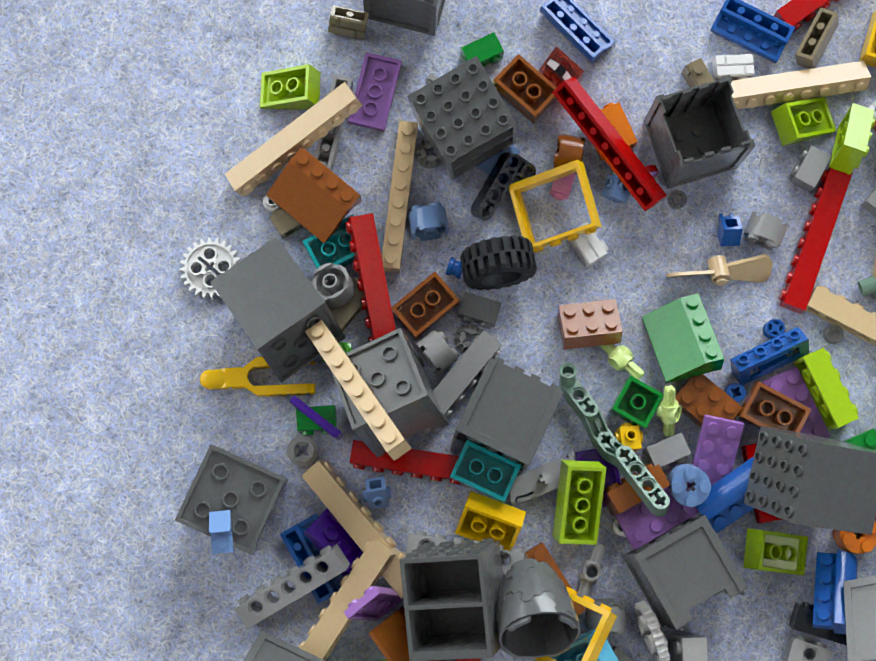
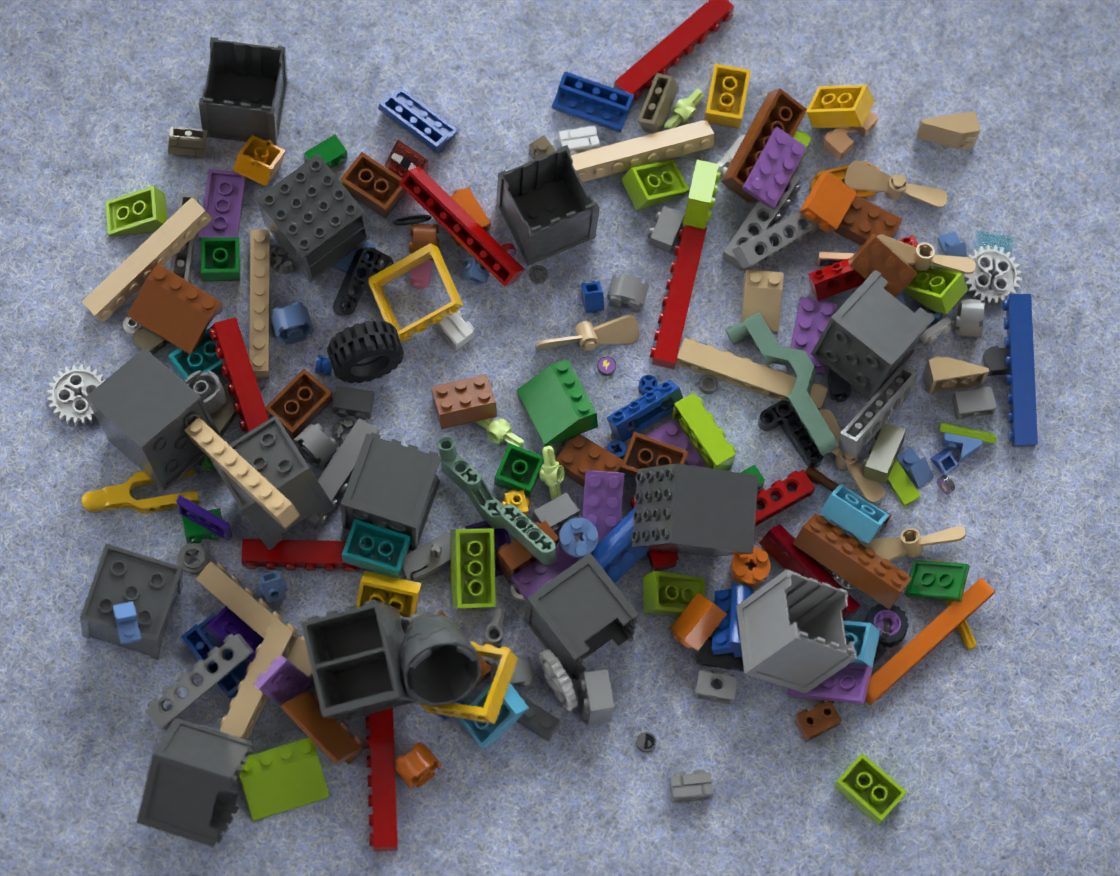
camera: 10 degrees left, 10 degrees down
(366, 146) = (220, 259): none -> green brick
(416, 50) = (259, 160): none -> light orange brick
(544, 129) = (421, 218): none -> black piece
(734, 302) = (606, 366): none -> tile
(798, 589) = (697, 622): none -> orange brick
(840, 48) = (684, 110): none -> yellowish green axle

